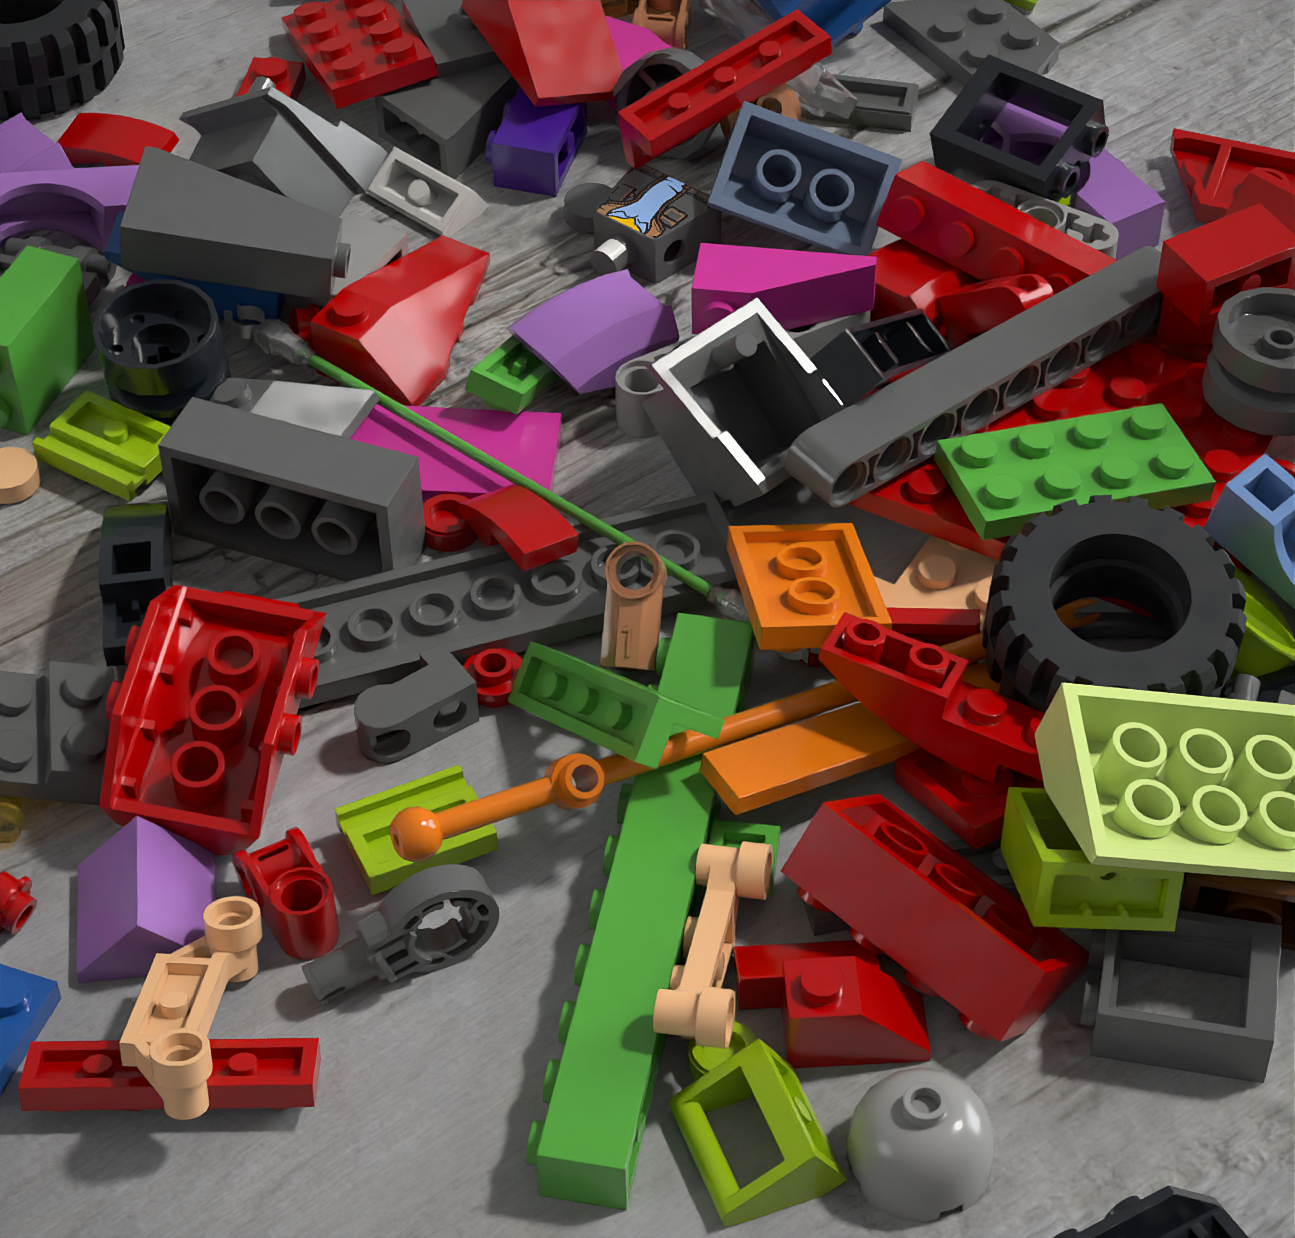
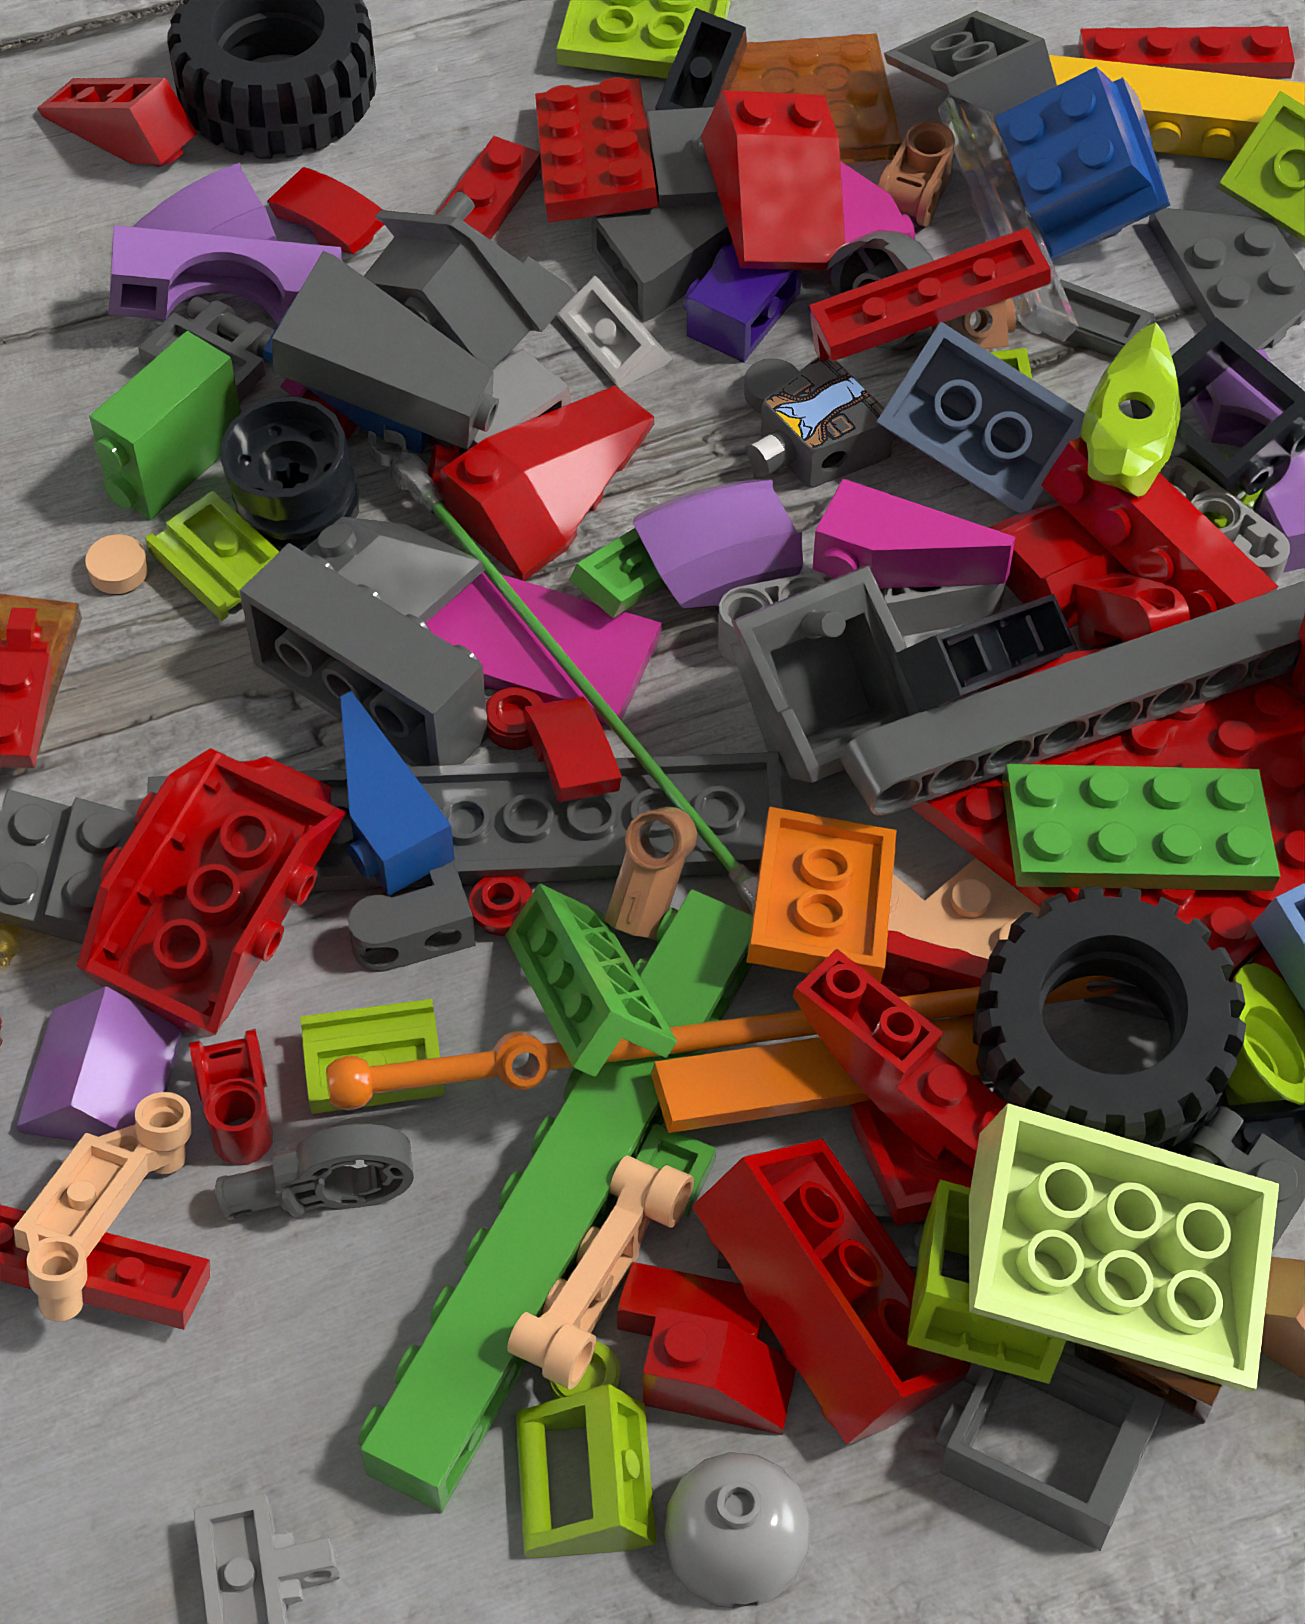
camera: 15 degrees right, 10 degrees up
(132, 569) = (192, 703): black slope -> none
(372, 615) = (392, 816): none -> blue slope
(945, 166) = (1127, 449): none -> lime piece

